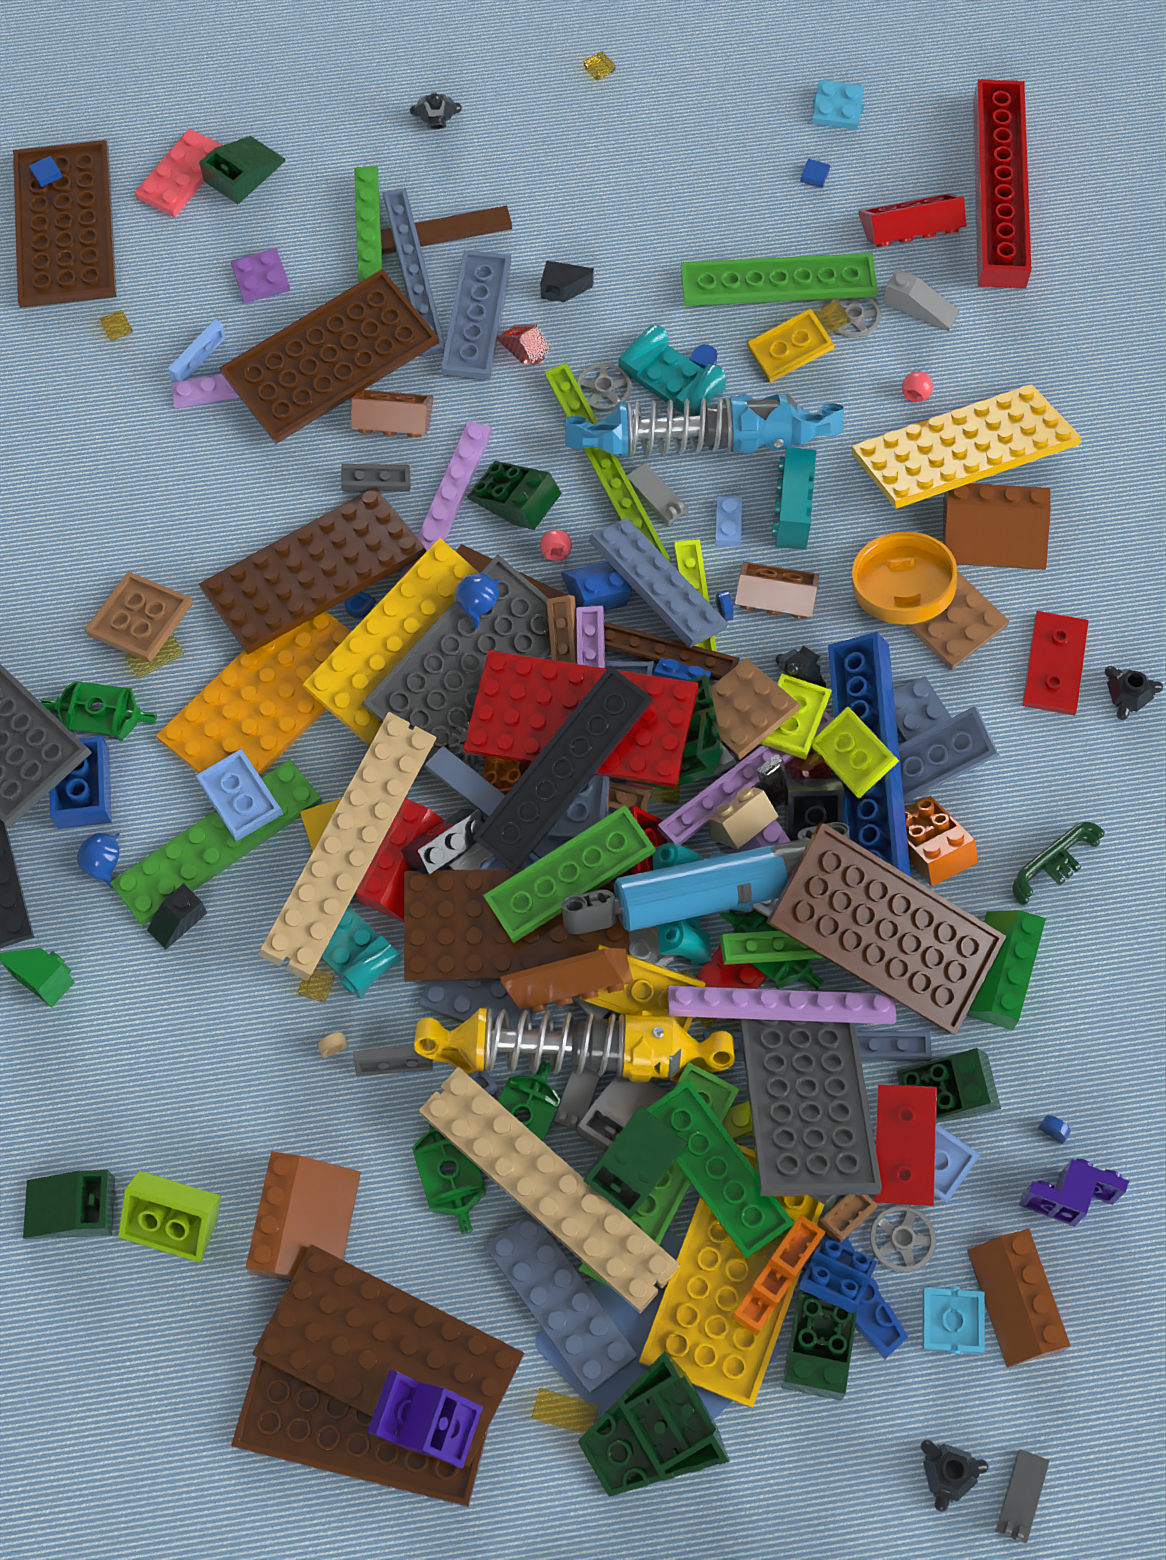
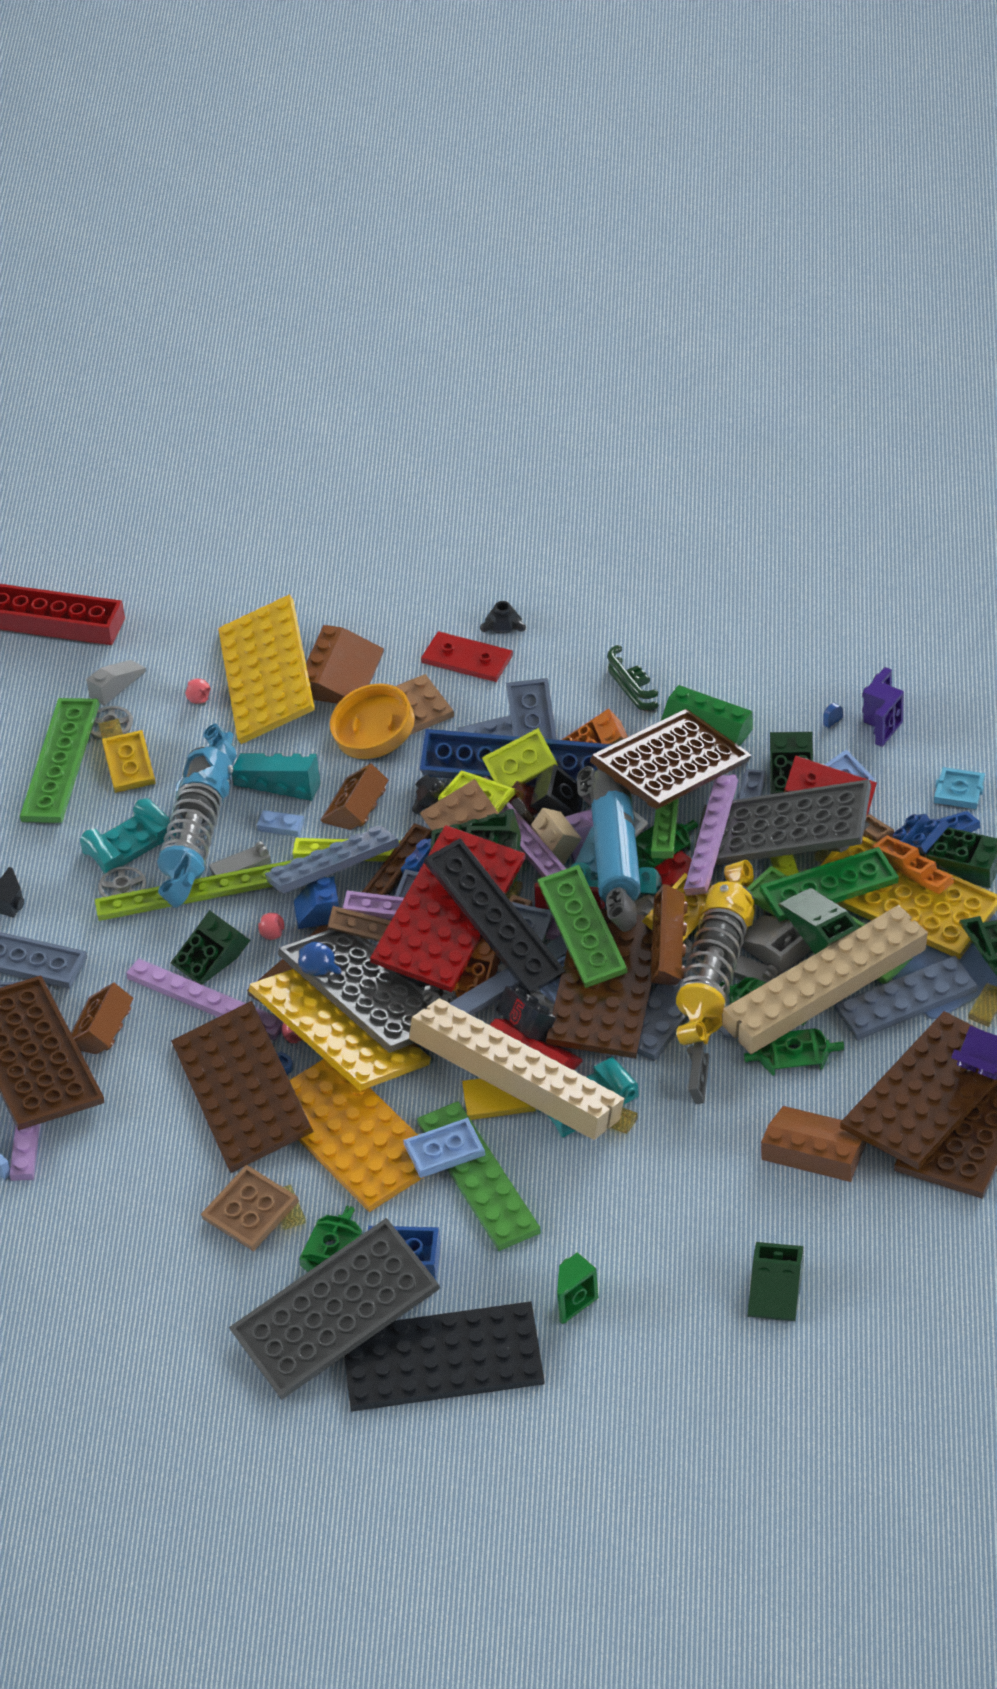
camera: 75 degrees left, 20 degrees down
(99, 856) = (473, 1249): blue hair -> none
(168, 1216) = (797, 1217): lime slope -> none
(176, 916) = (541, 1200): black slope -> none
(332, 1044) = (677, 1111): tan tile -> none
(371, 476) = (161, 1040): dark grey hinge -> none
(525, 343) = (62, 924): clear red slope -> none
(704, 355) = (117, 816): blue tile -> none
(724, 605) = (357, 828): blue tile -> none
(902, 1239) = (894, 807): light grey wheel -> none
(913, 218) = (32, 669): red slope -> none
(1018, 1298) = (950, 747): dark orange slope -> none

